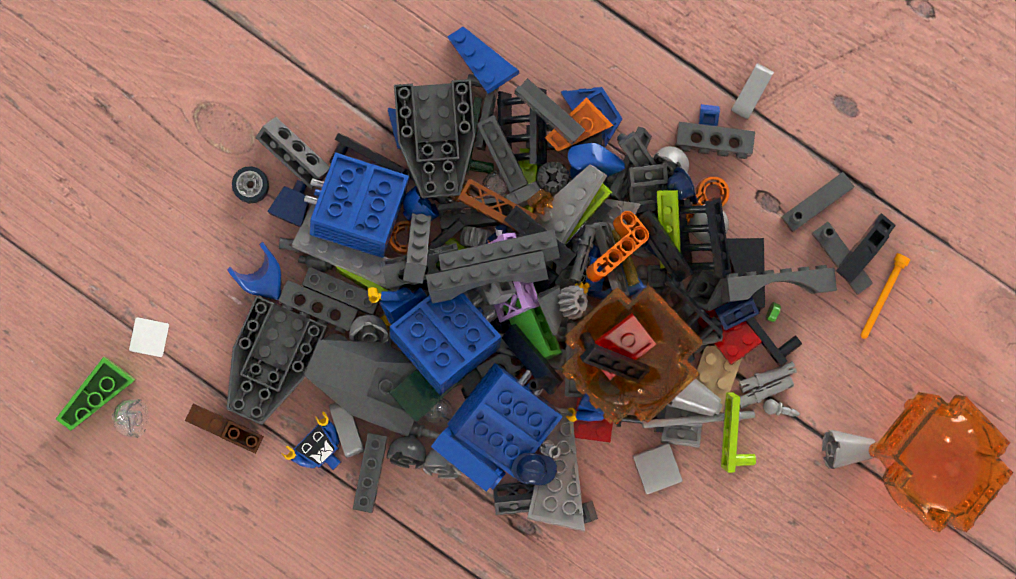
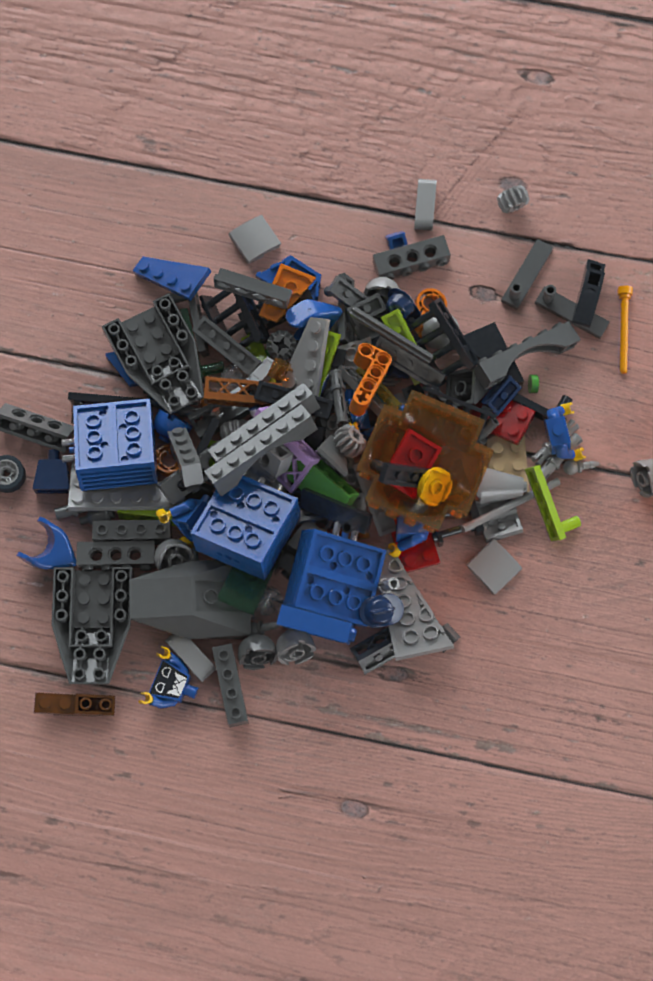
camera: 25 degrees left, 10 degrees down
(575, 55) = (254, 239): none -> light grey slope
(632, 378) = (434, 486): none -> yellow tile
(658, 213) = (391, 335): none -> dark grey axle
(772, 373) = (558, 433): none -> blue torso
(837, 123) = (513, 199): none -> light grey gear

